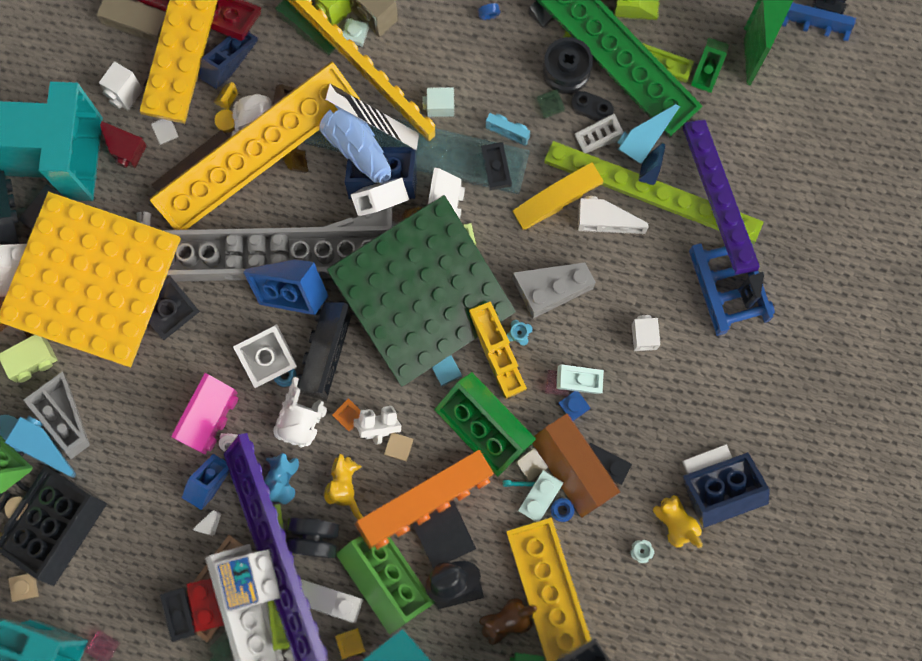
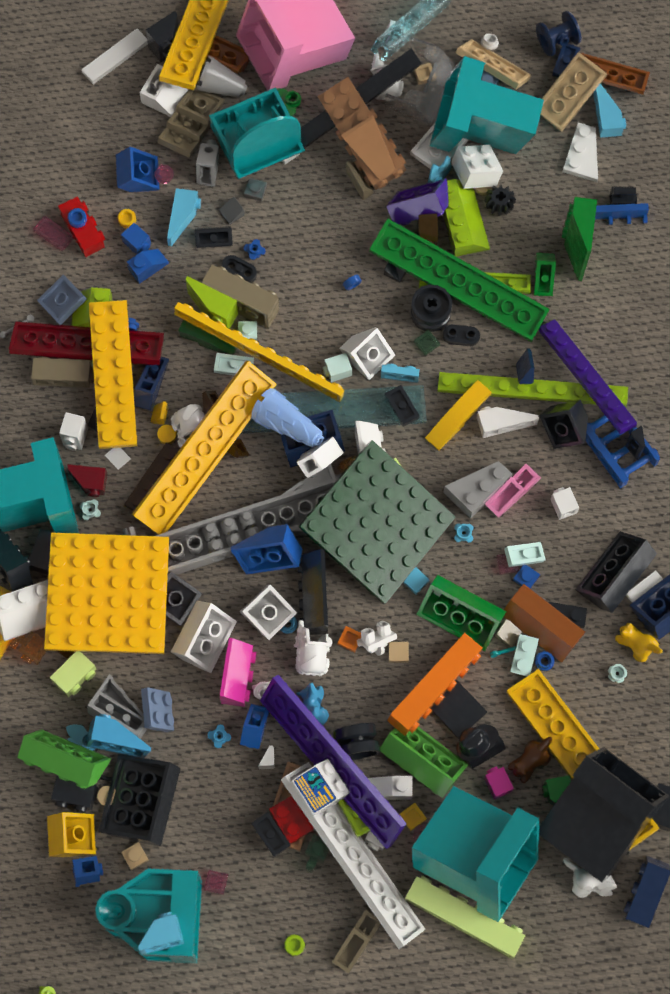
camera: 20 degrees left, 5 degrees down
(102, 429) = (157, 710): none -> sand blue plate
(108, 174) = (93, 504): none -> light aqua plate
(170, 482) = (218, 742): none -> dark azure plate
(185, 359) = (203, 636): none -> white slope
(317, 59) = (230, 364): none -> light aqua plate
(341, 489) = (364, 698): yellow animal -> none
(372, 116) = (292, 395): white sticker -> none
(460, 636) = (498, 782): none -> dark pink brick
(479, 94) = (368, 352): none -> white slope
(497, 350) = (451, 551): yellow slope -> none
(591, 301) = (513, 490): none -> bright pink slope
(610, 138) = (479, 360): white slope -> none
(643, 137) = (511, 348): medium azure slope -> none
(677, 243) = (565, 424): none -> black slope
(680, 431) = (616, 571): none -> black slope

